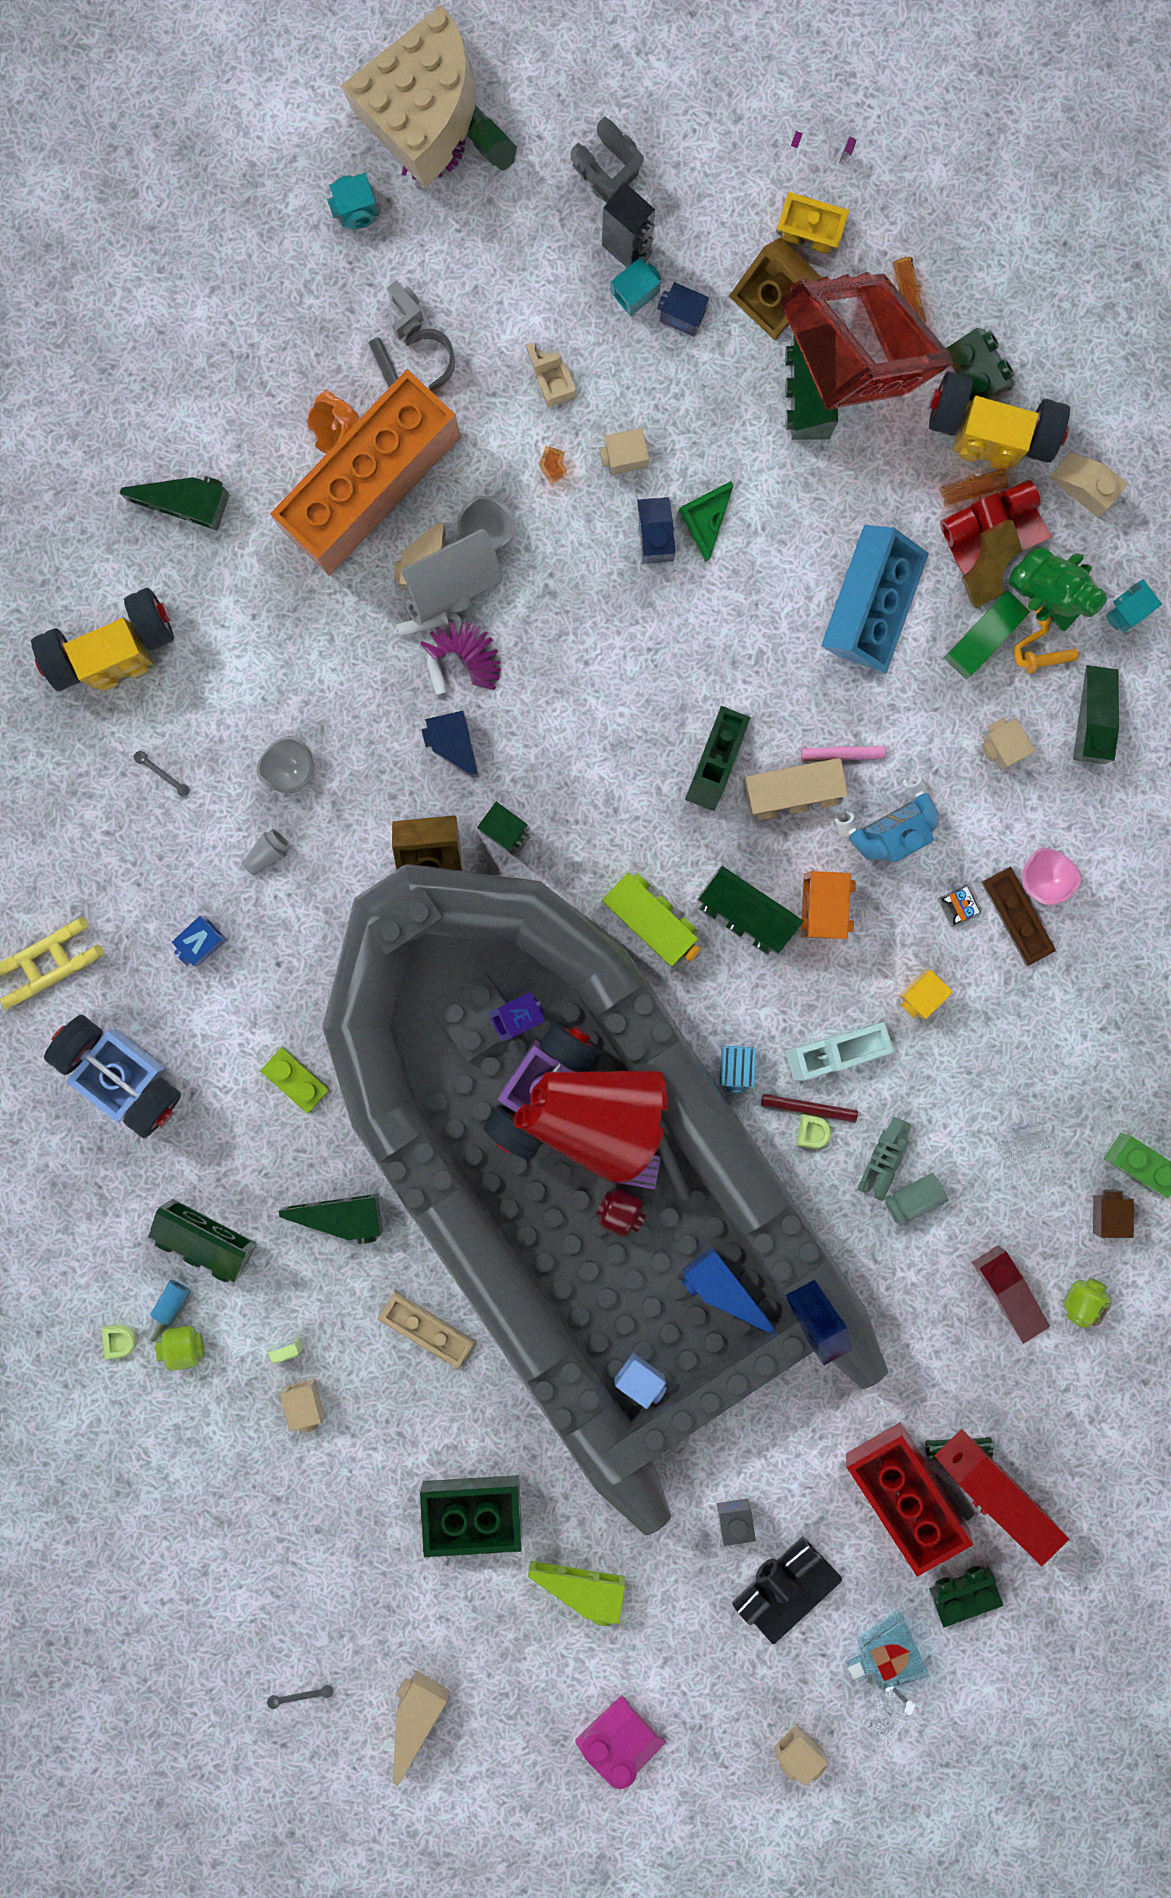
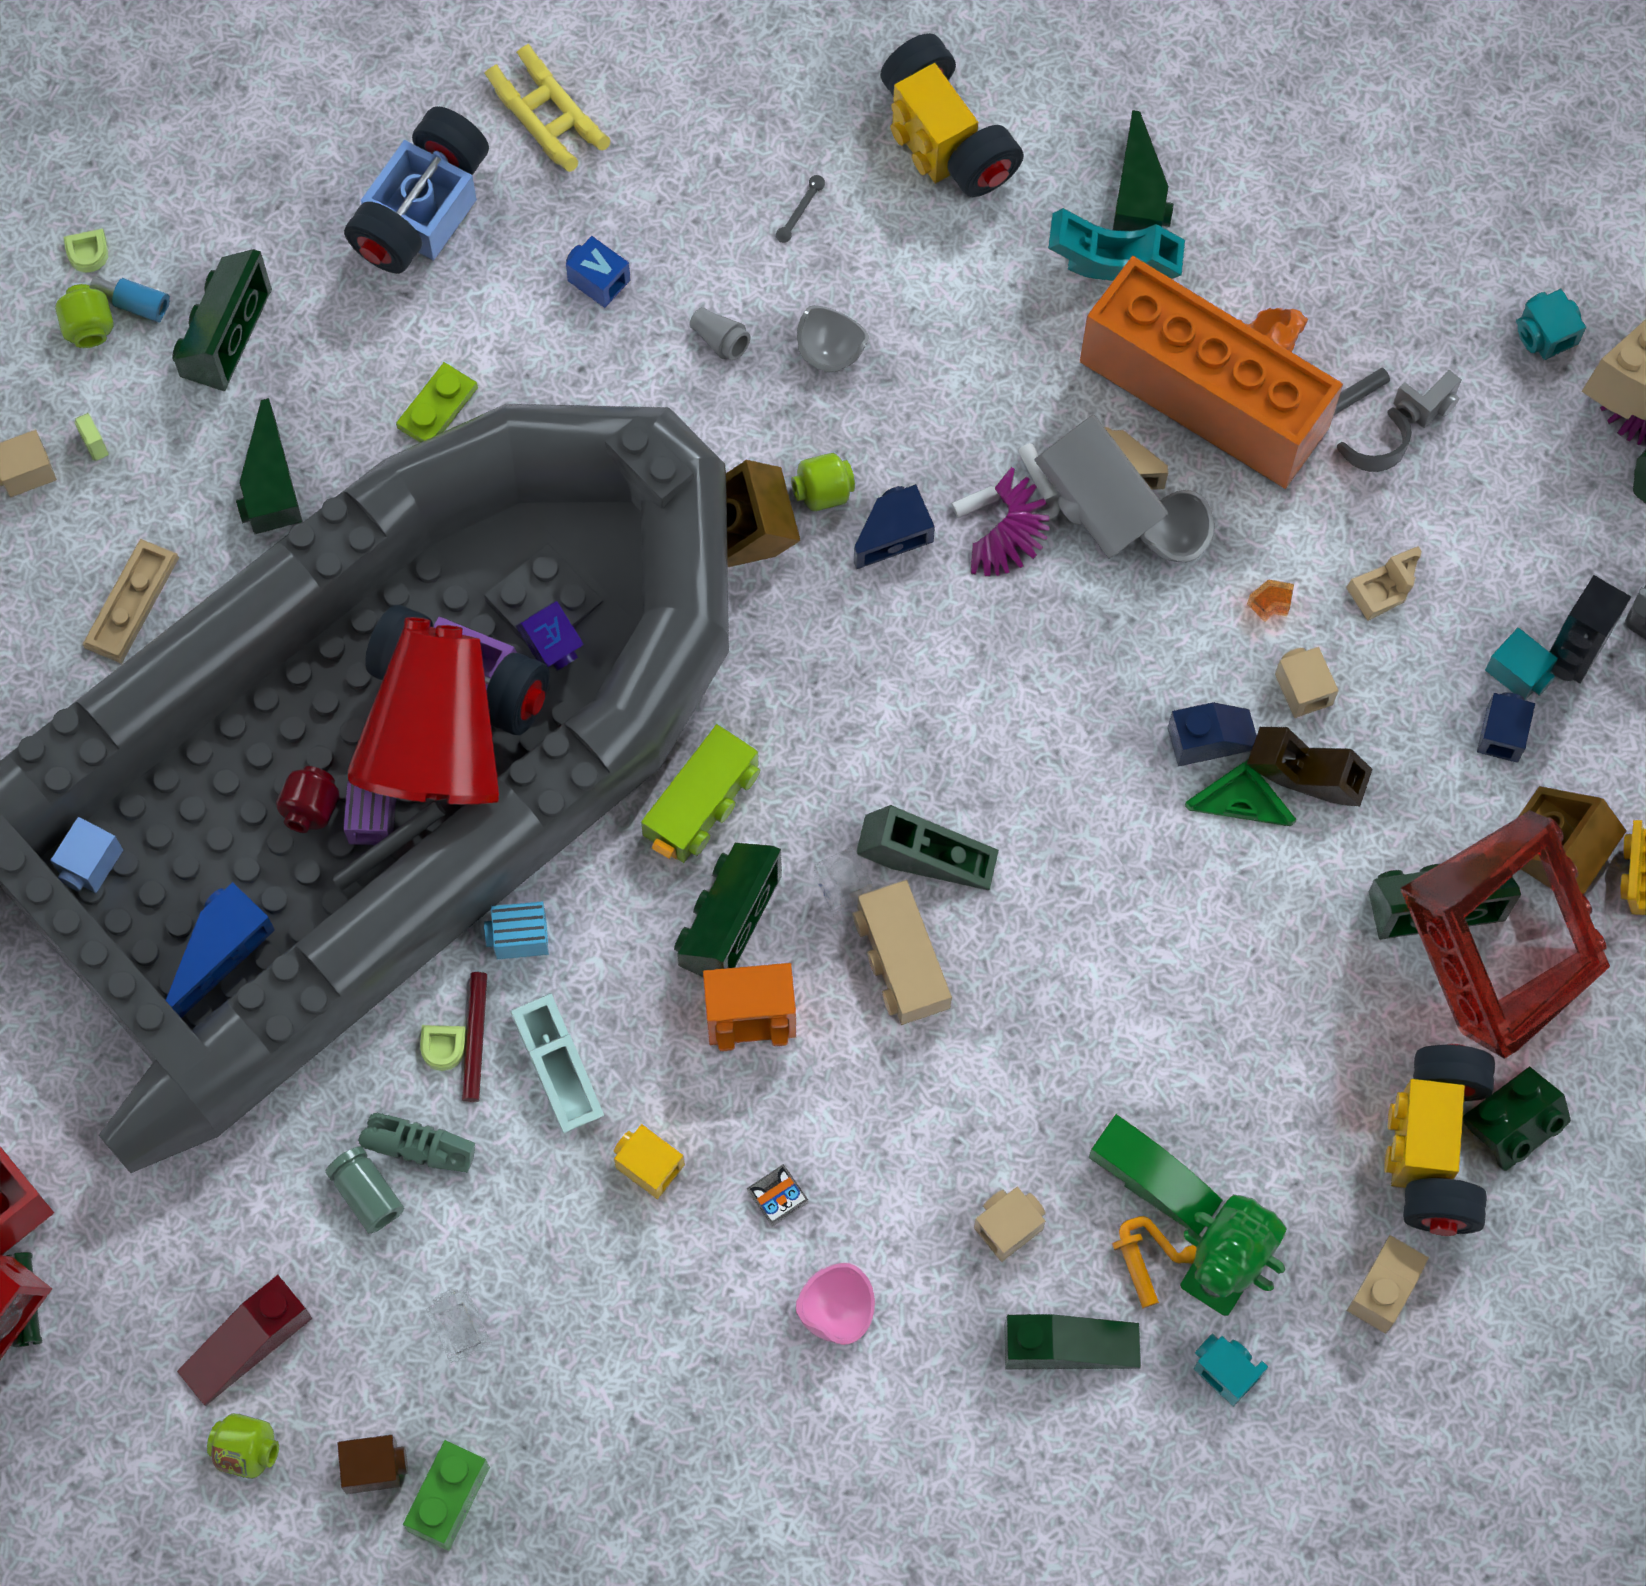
camera: 80 degrees right, 20 degrees down
(242, 529) = (1104, 252): none -> teal arch
(407, 790) = (823, 482): none -> lime head
(504, 828) = (791, 594): dark green brick -> none
(694, 462) = (1323, 773): none -> dark brown brick
(820, 1322) = (184, 1038): clear blue slope -> none
(845, 753) = (961, 1014): bright pink piece -> none
(875, 597) = (1175, 1022): dark azure slope -> none
(897, 832) = (867, 1093): dark azure torso -> none
(908, 284) = (1596, 1009): clear orange pin -> none
(974, 487) = (1352, 1131): clear orange pin -> none
(997, 549) = (1272, 1168): pearl gold tile -> none
(1015, 504) = (1303, 1169): red panel -> none
(1018, 916) = (774, 1278): reddish brown tile -> none

